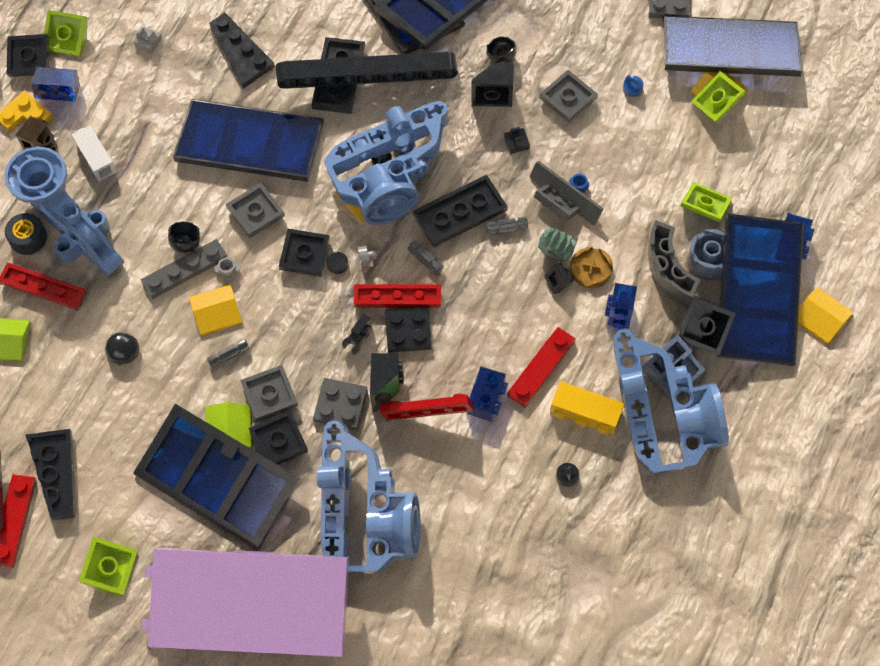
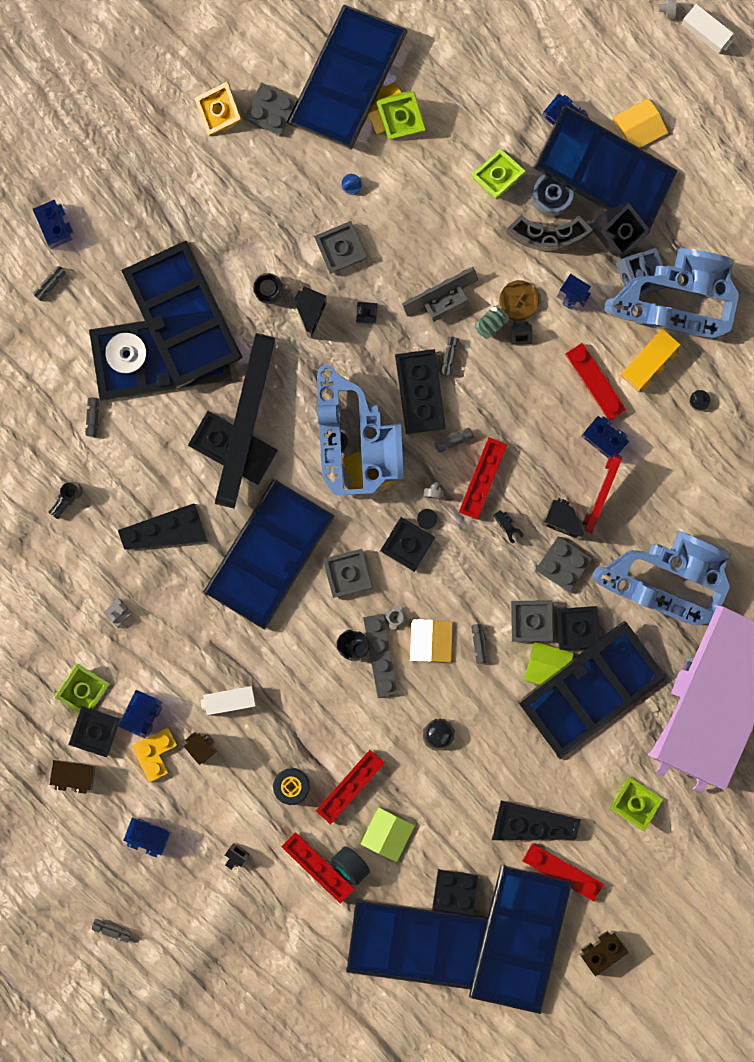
camera: 70 degrees left, 20 degrees up
(39, 179) = (258, 759): medium blue piece -> none
(408, 329) = (516, 481): black plate -> none
(579, 179) = (434, 271): blue plate -> none

